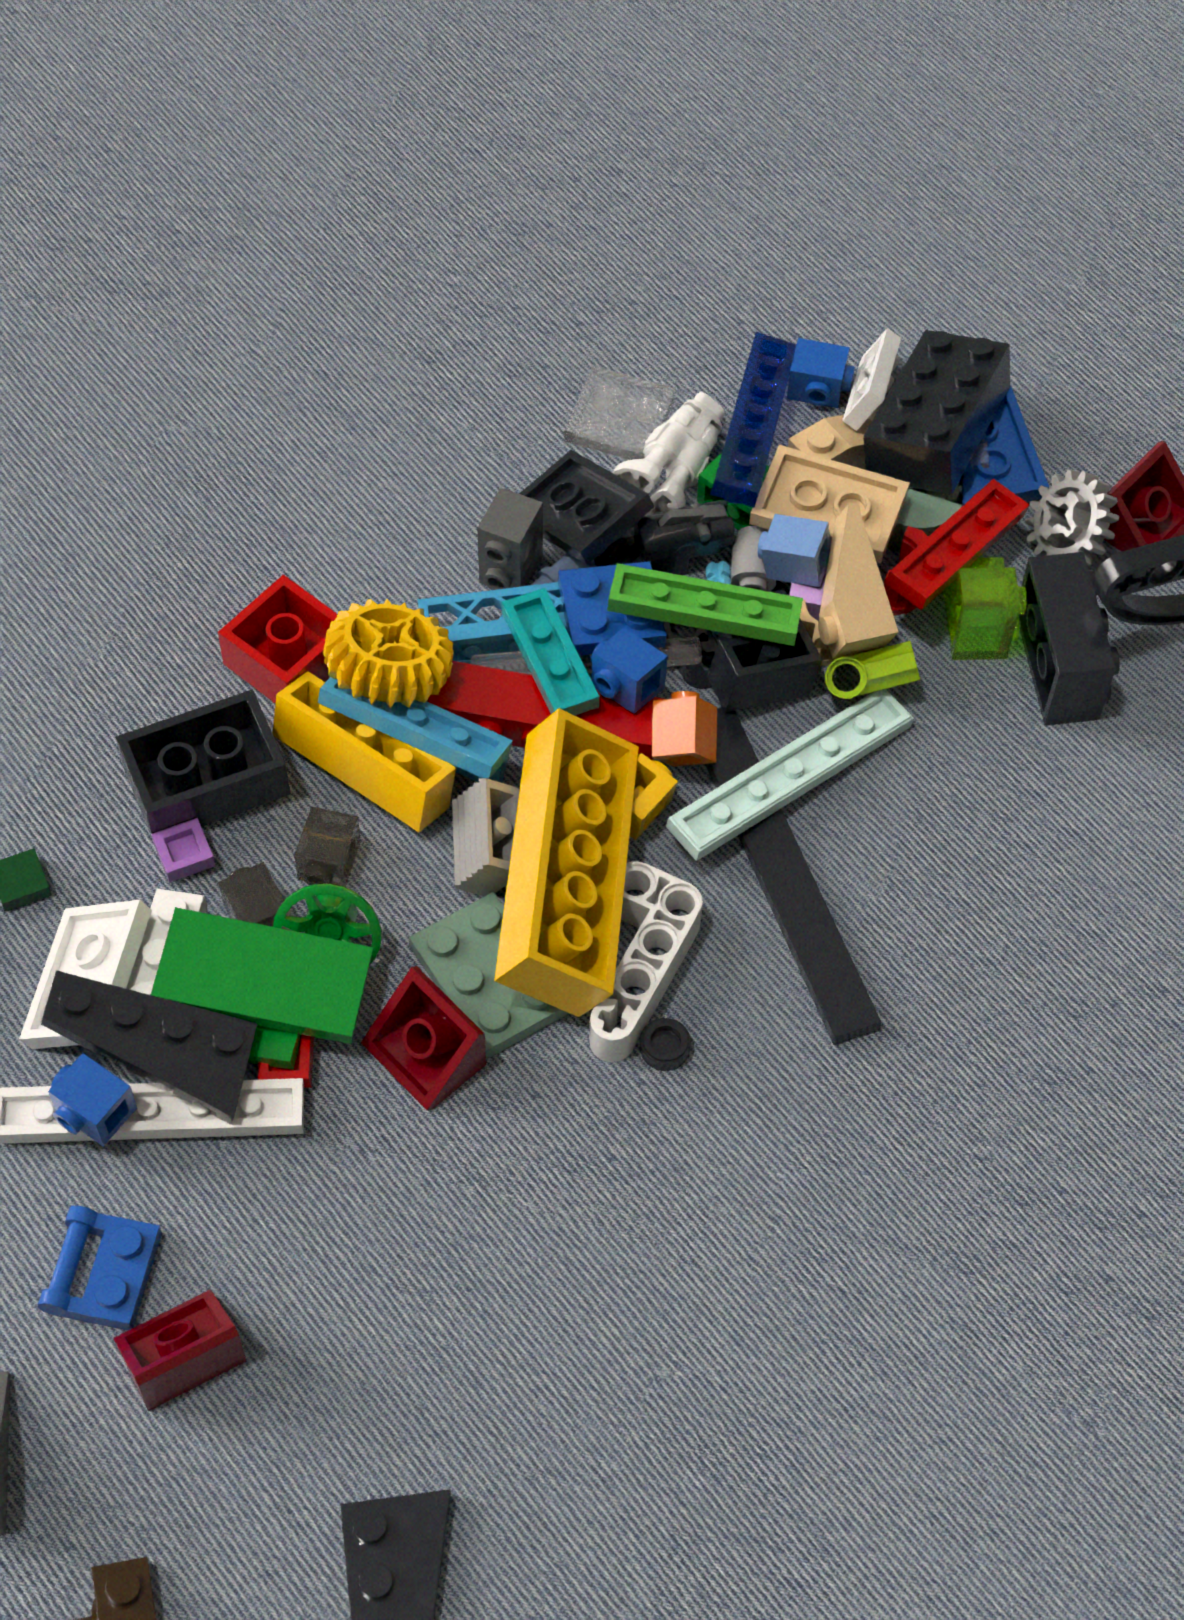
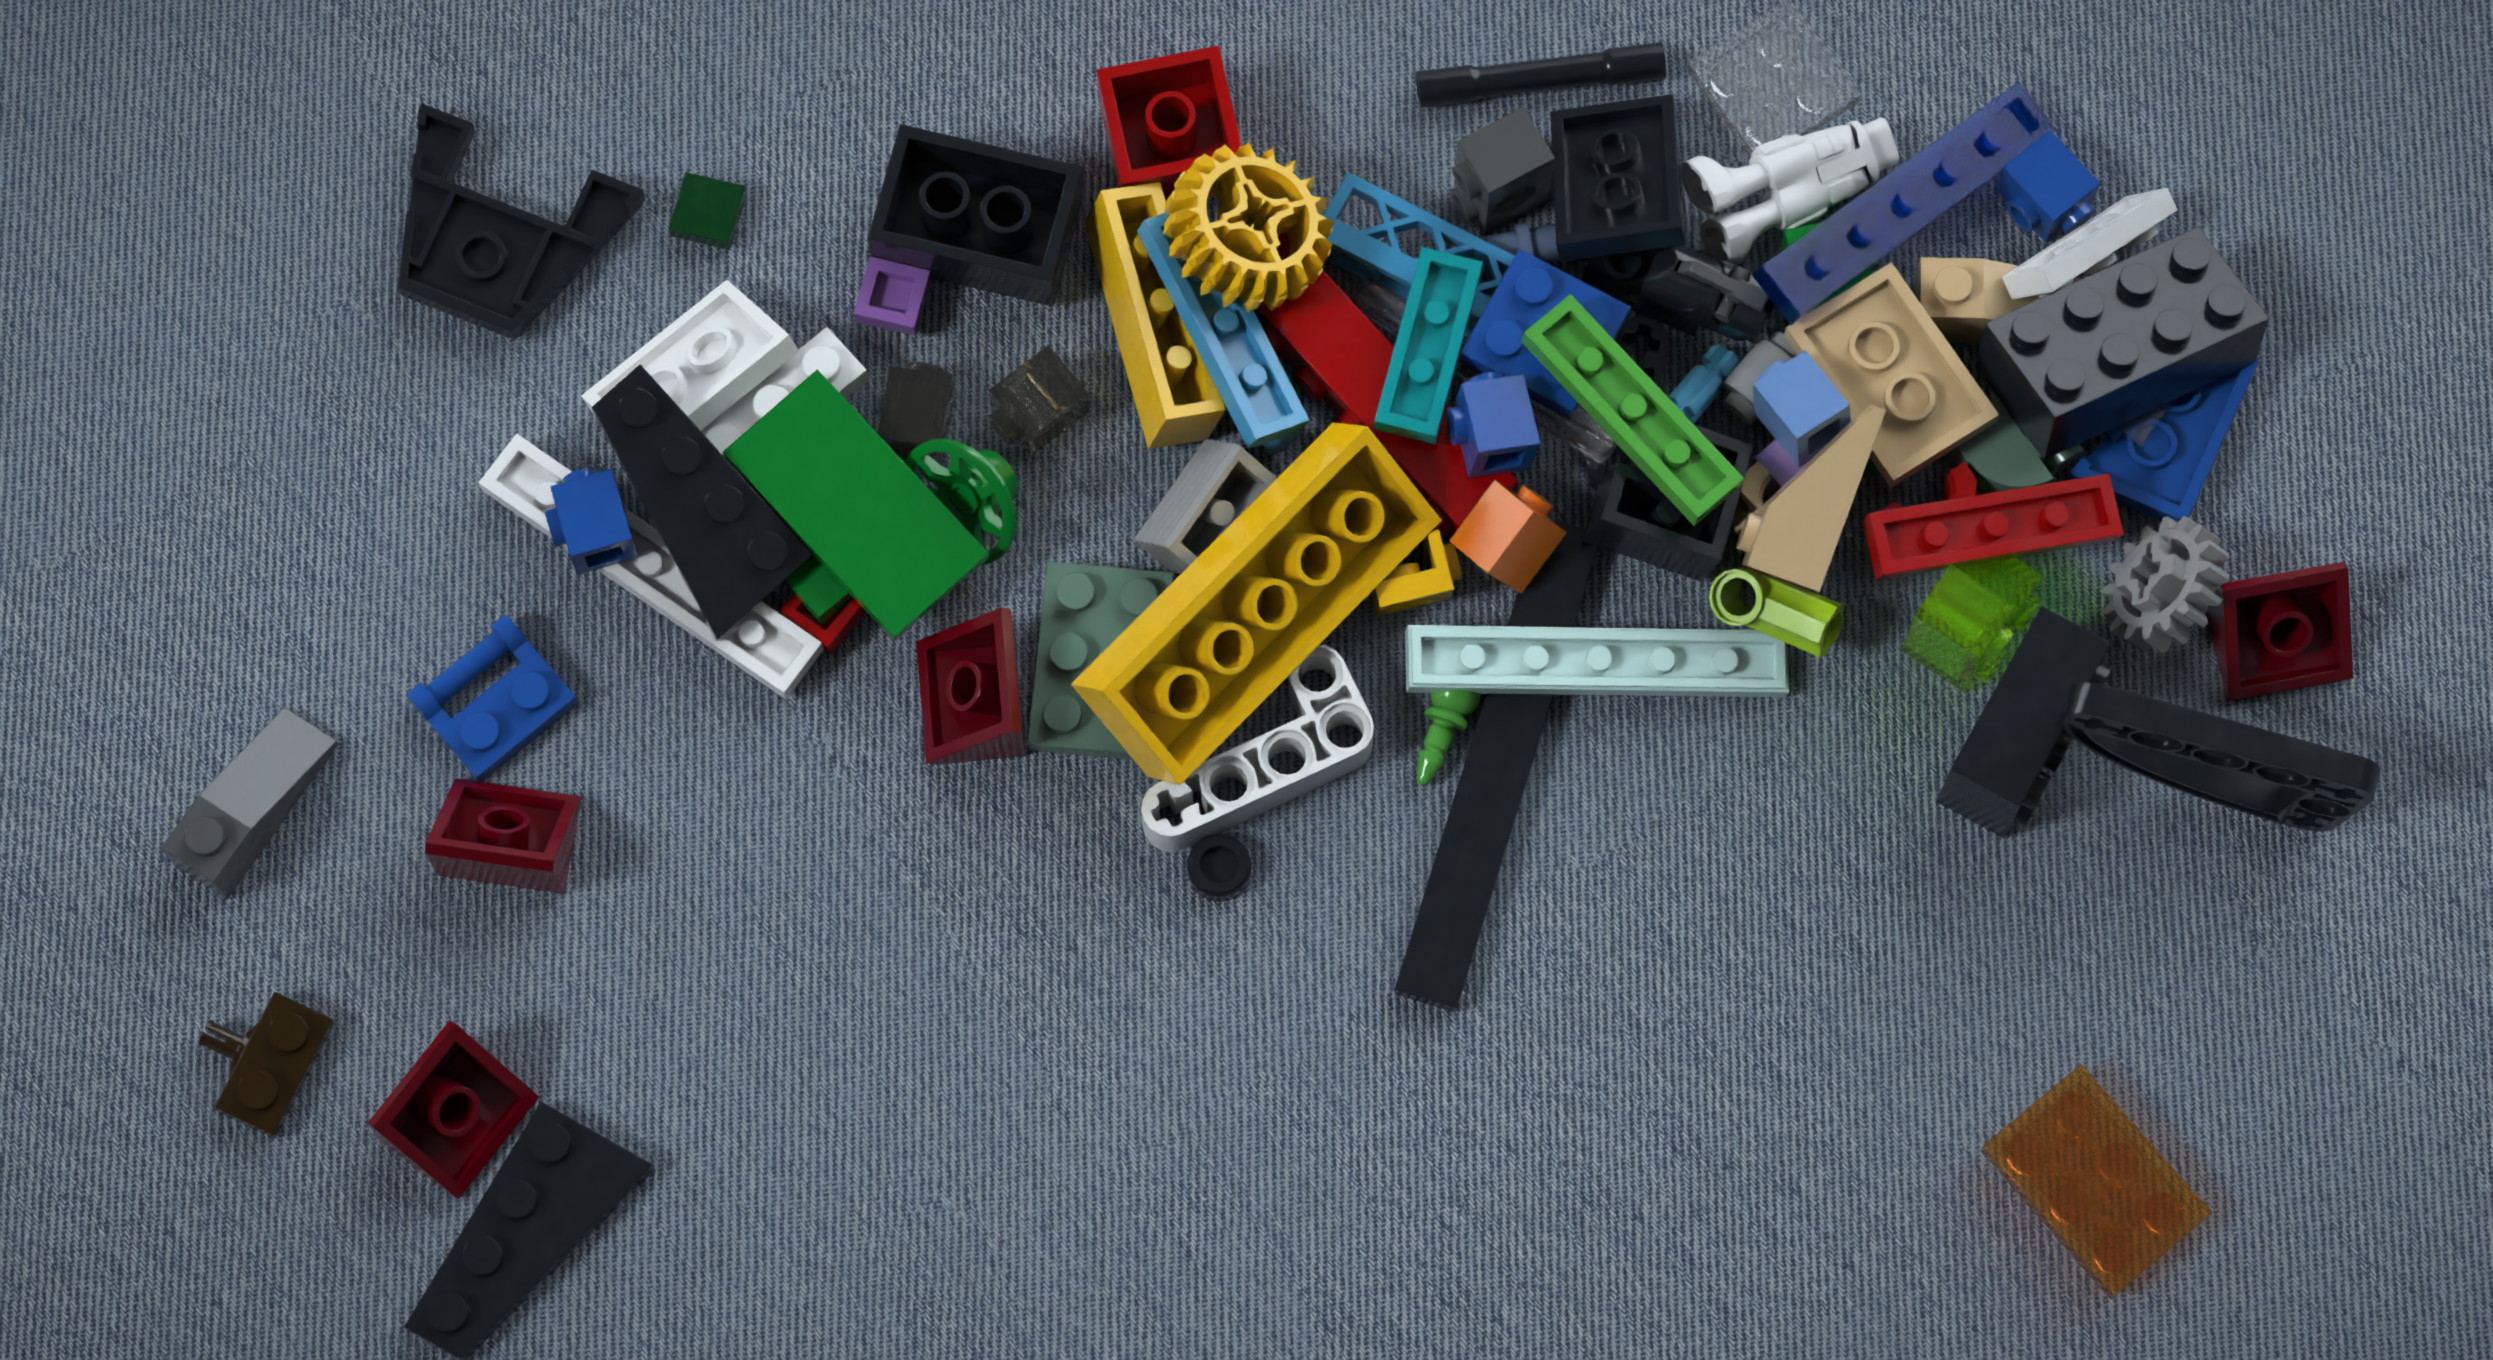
camera: 40 degrees right, 15 degrees up
(283, 1555) = (452, 1110): none -> dark red slope
(445, 519) = (1611, 67): none -> black piece
(729, 864) = (1447, 714): none -> bright green bar

